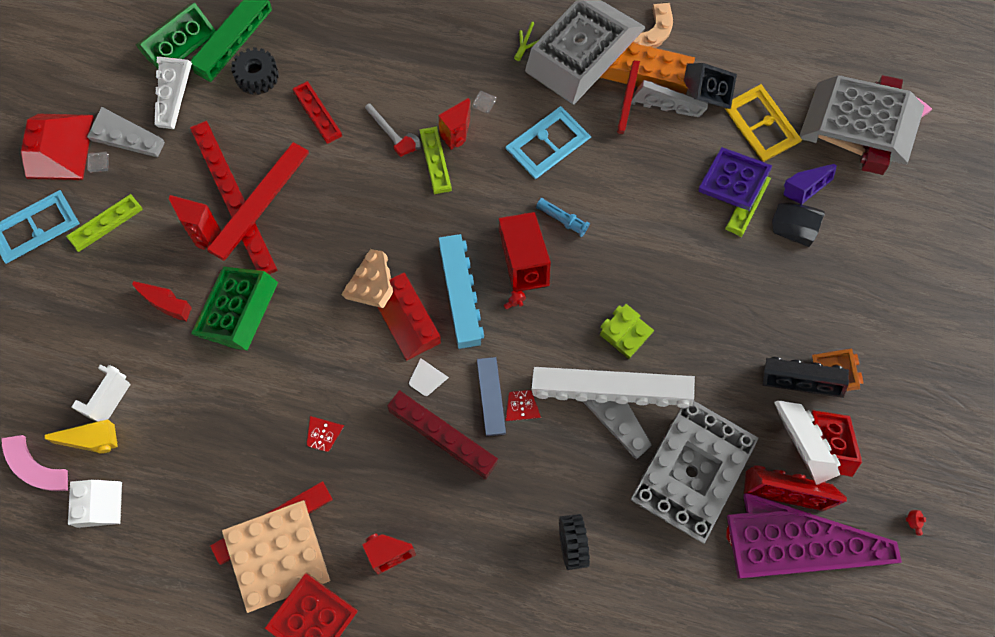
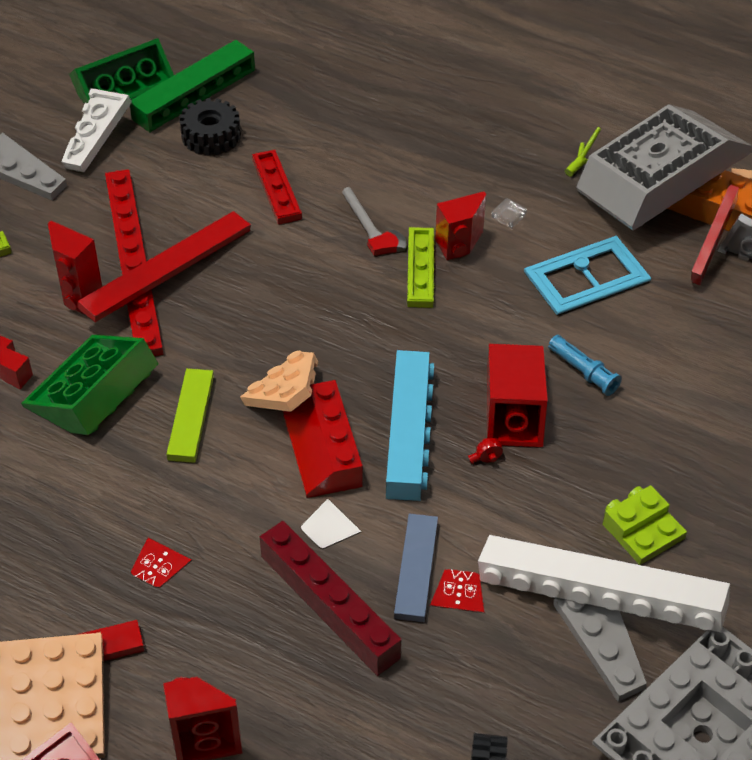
camera: 20 degrees right, 20 degrees down
(311, 316) = (190, 415): none -> lime tile

